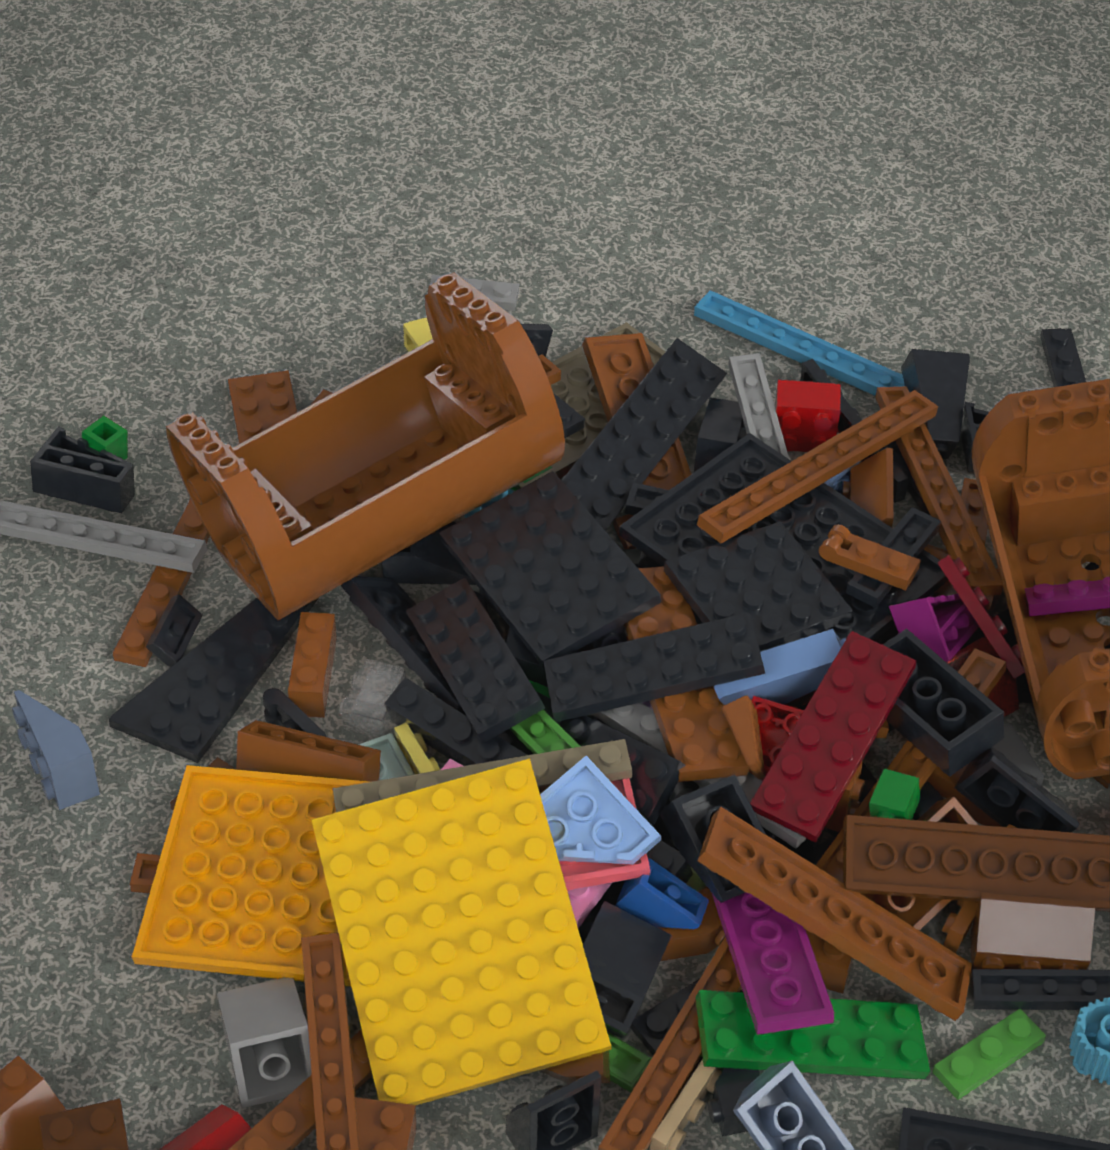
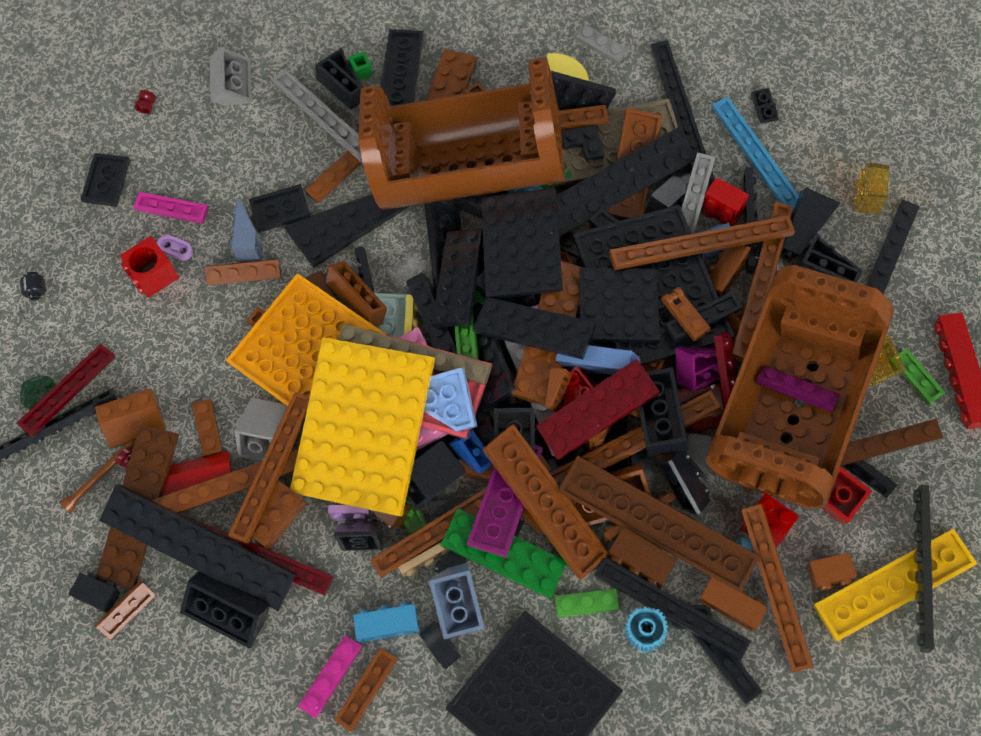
camera: 35 degrees right, 20 degrees up
(75, 814) = (242, 271): none -> dark orange plate
(91, 689) = (279, 208): none -> black plate
(156, 1085) = (207, 427): none -> dark orange plate
(157, 402) = (402, 65): none -> black plate
(174, 630) = (338, 190): black plate -> none
(313, 663) = (390, 239): dark orange brick -> none
(495, 1102) = (340, 512): none -> lavender plate
(624, 308) = (676, 94): none -> black plate
(764, 285) = (764, 106): none -> black slope
(895, 796) = (611, 456): green brick -> none
(997, 325) = (872, 188): none -> clear yellow brick

